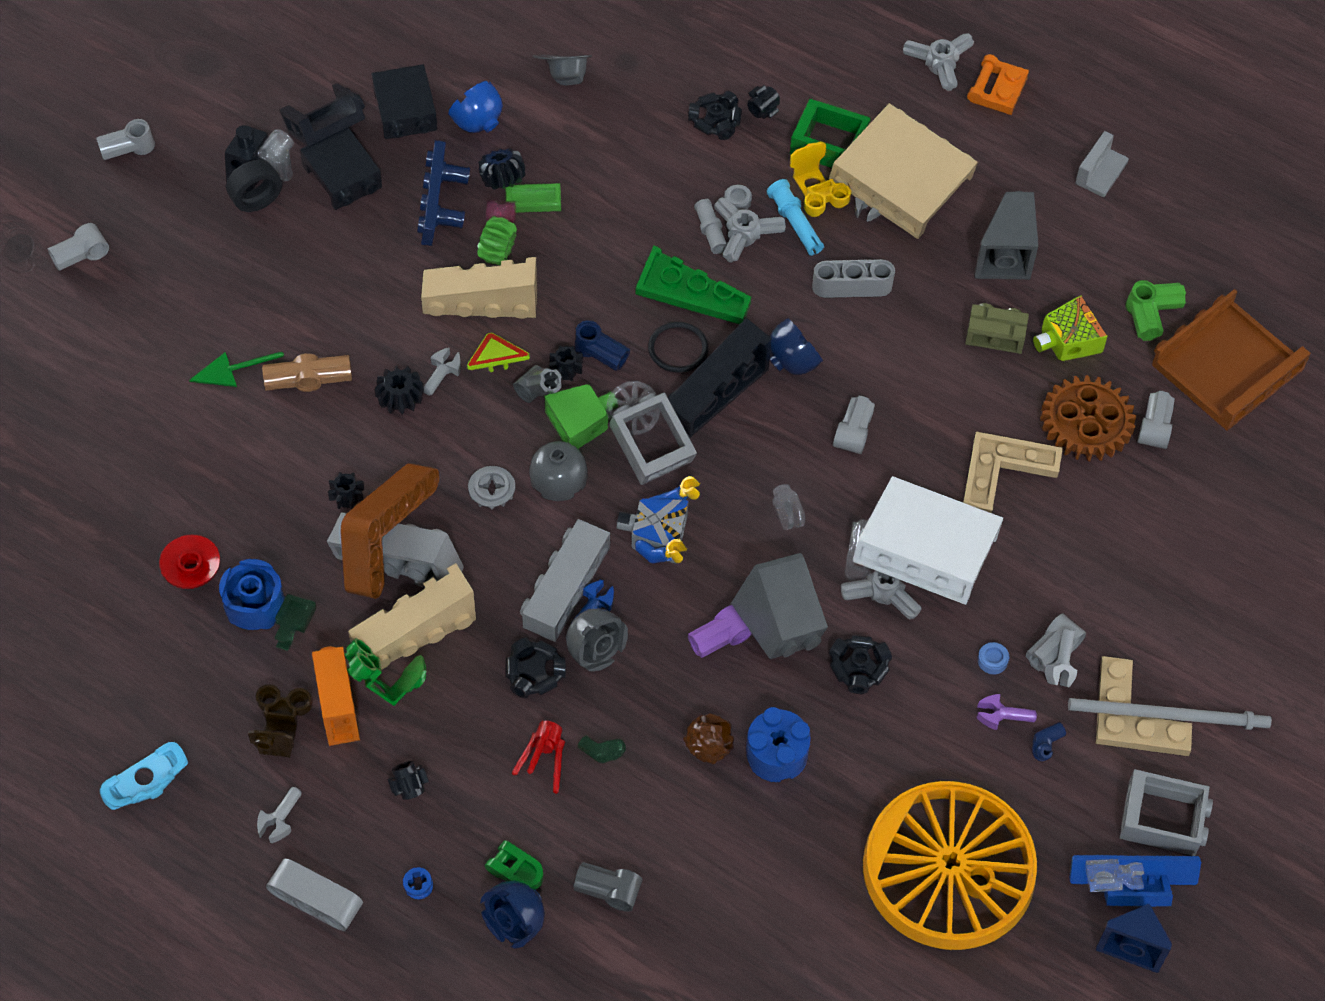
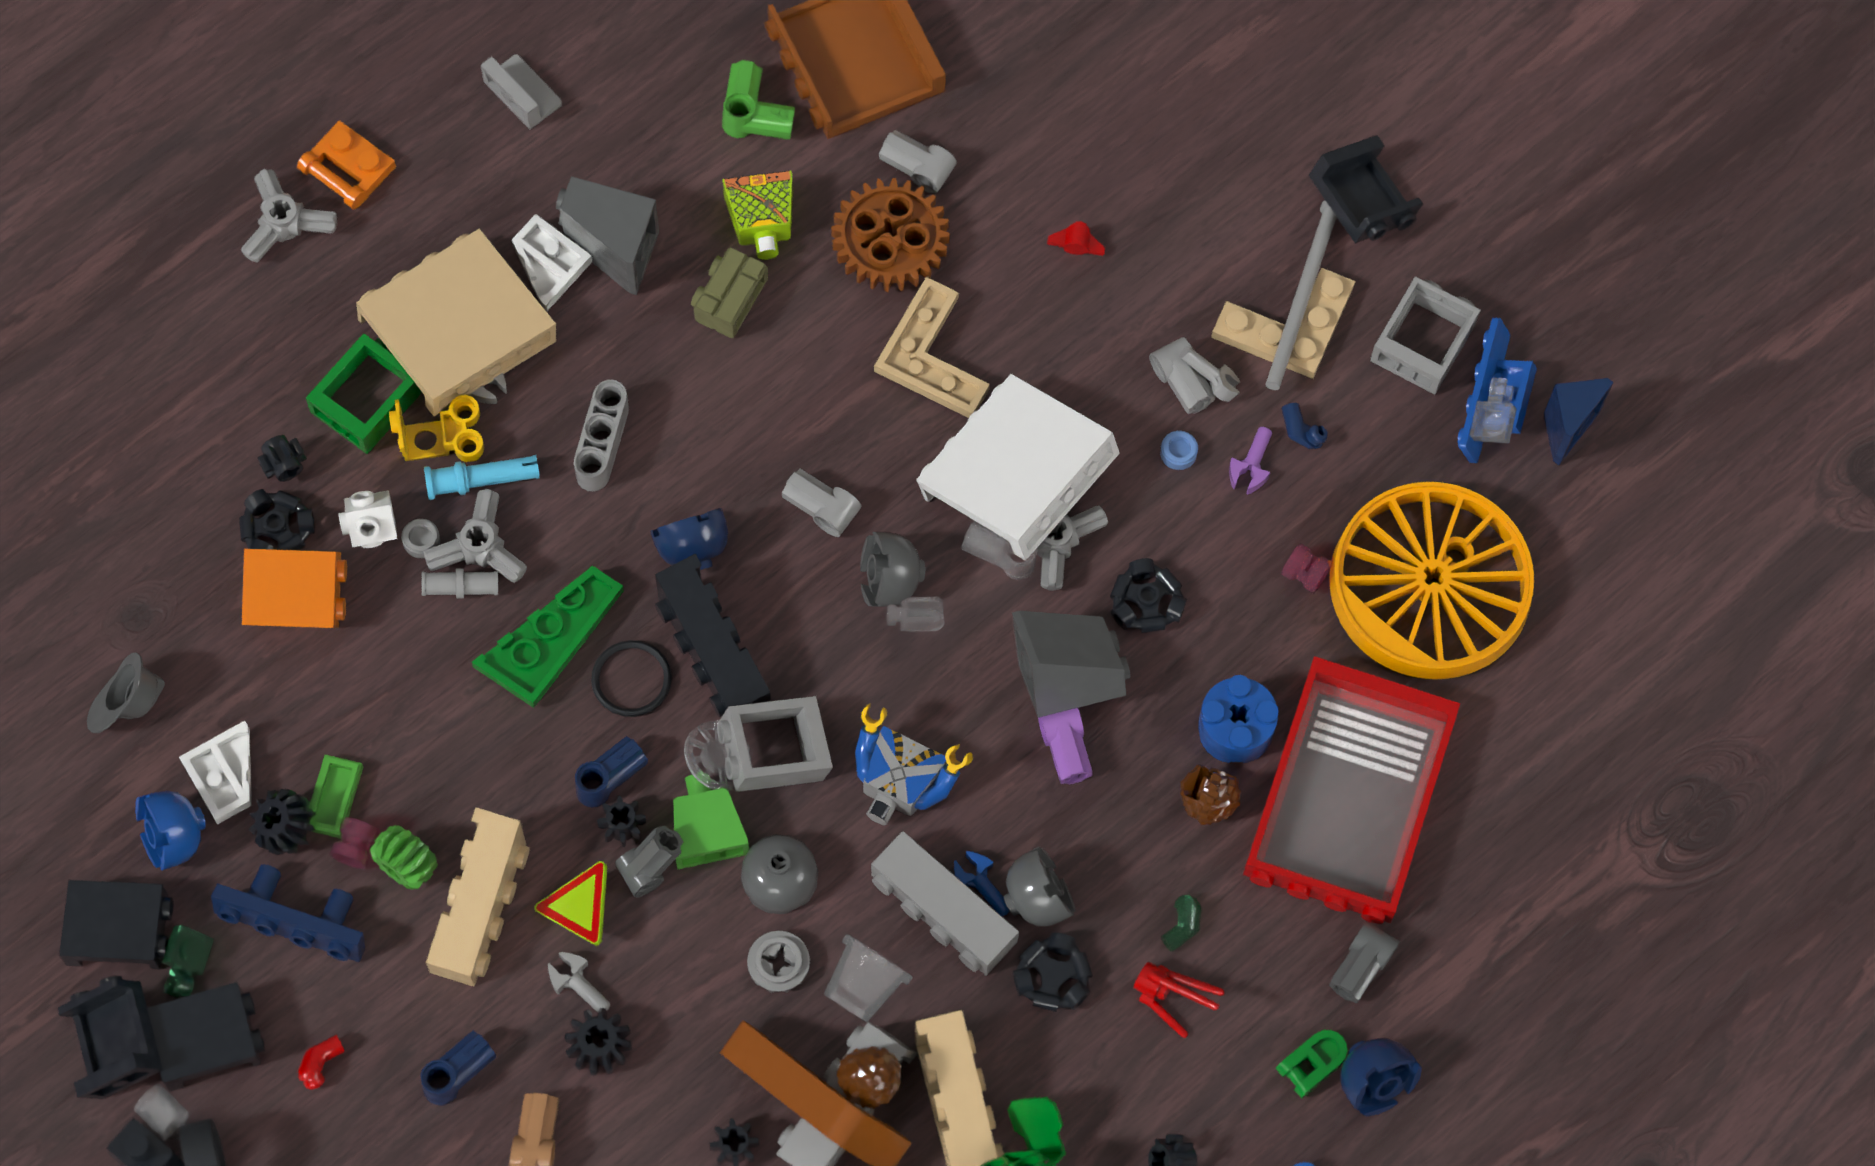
camera: 75 degrees left, 10 degrees up
(346, 235) = (314, 1060): none -> red arm
(357, 312) = (459, 1066): none -> dark blue piece
(395, 144) = (188, 956): none -> clear green plate
(402, 538) = (869, 1076): none -> reddish brown piece
(492, 536) = (863, 979): none -> clear container
(529, 131) = (222, 772): none -> white wing
(669, 129) = (293, 588): none -> orange brick
(737, 160) = (368, 519): none -> white brick
(748, 844) = (1351, 791): none -> clear window
(815, 479) = (891, 569): none -> dark grey cylinder
(926, 766) = (1299, 563): none -> clear pink wheel
(973, 215) = (549, 259): none -> white wing
(1139, 543) = (1077, 240): none -> red piece
(1272, 735) = (1362, 191): none -> black panel

